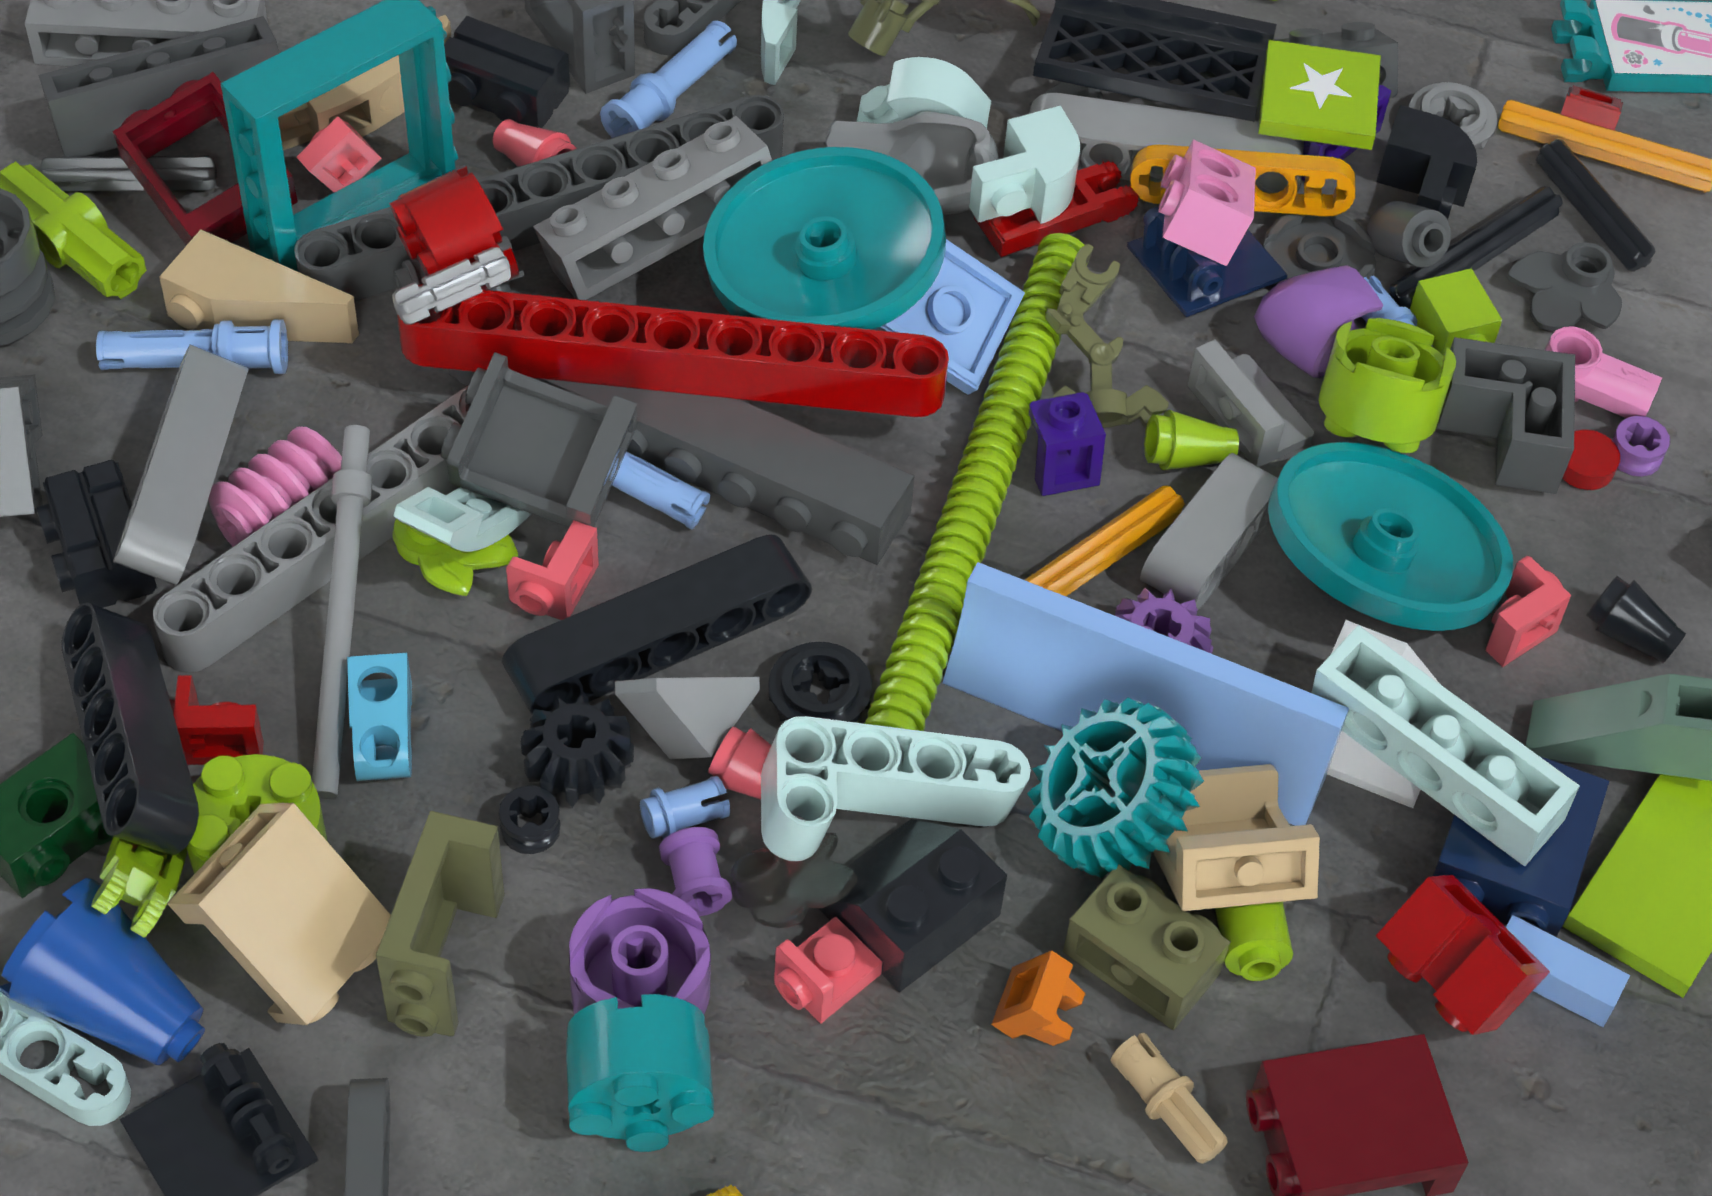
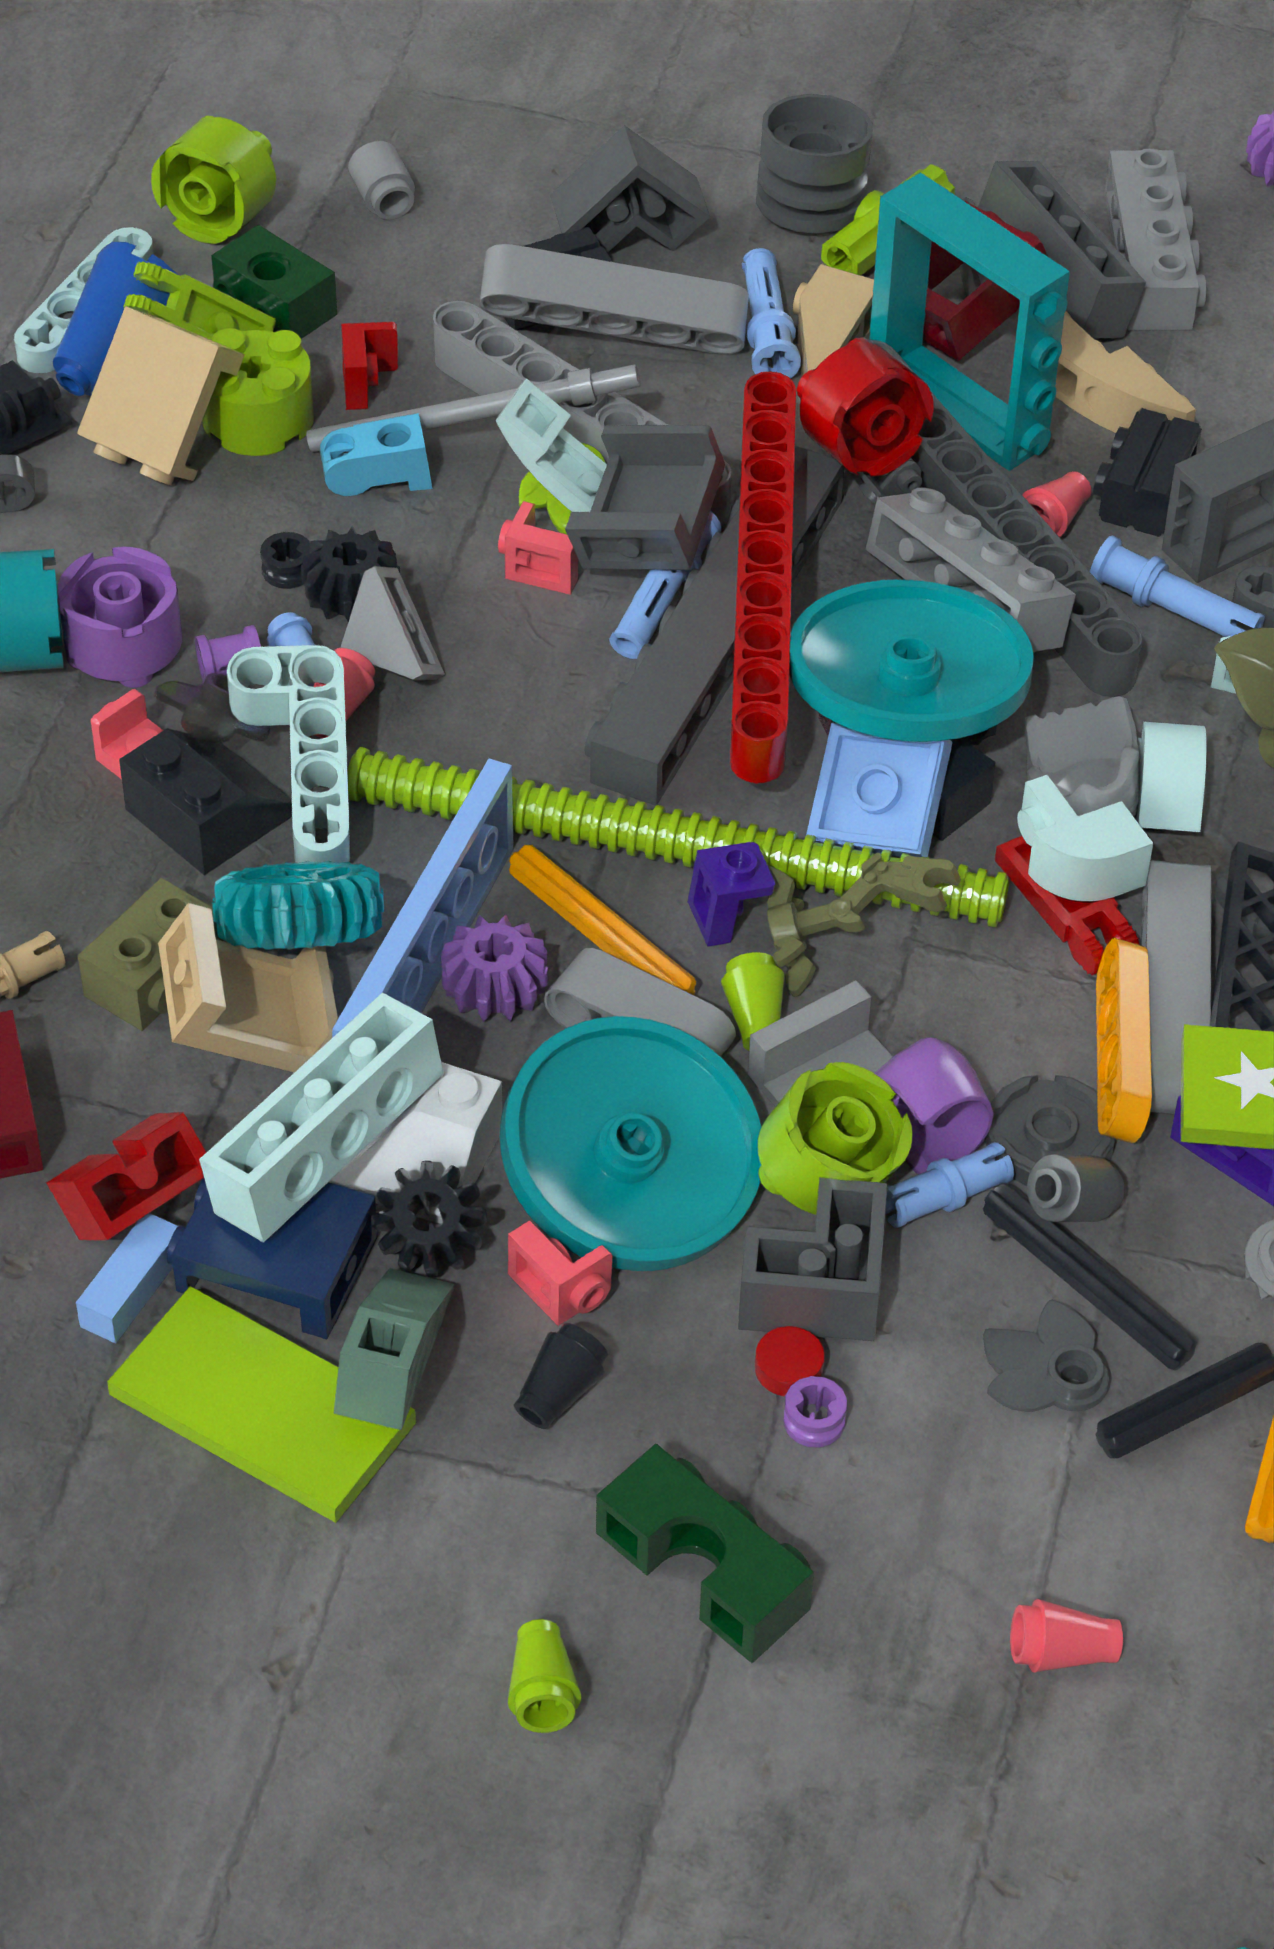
camera: 90 degrees right, 5 degrees down
(129, 730) = (331, 293): black beam -> none
(272, 483) = (596, 349): bright pink piece -> none
(338, 155) = (991, 357): coral bracket -> none
(450, 870) = (156, 480): olive panel -> none
(451, 285) = (784, 393): light grey axle -> none
(658, 624) = (490, 621): black beam -> none
(837, 669) = (448, 718): black gear -> none
(1034, 995) = (93, 875): orange tile -> none
(1195, 280) = (1016, 1018): dark blue hinge -> none
(1207, 201) = (1050, 993): bright pink brick -> none
(1257, 939) = (151, 1040): lime brick -> none
(1429, 159) = (1201, 1234): black brick -> none
(1456, 308) = (961, 1234): lime brick -> none
(1495, 690) = (403, 1228): none -> black gear
(1603, 378) = (897, 1364): bright pink piece -> none

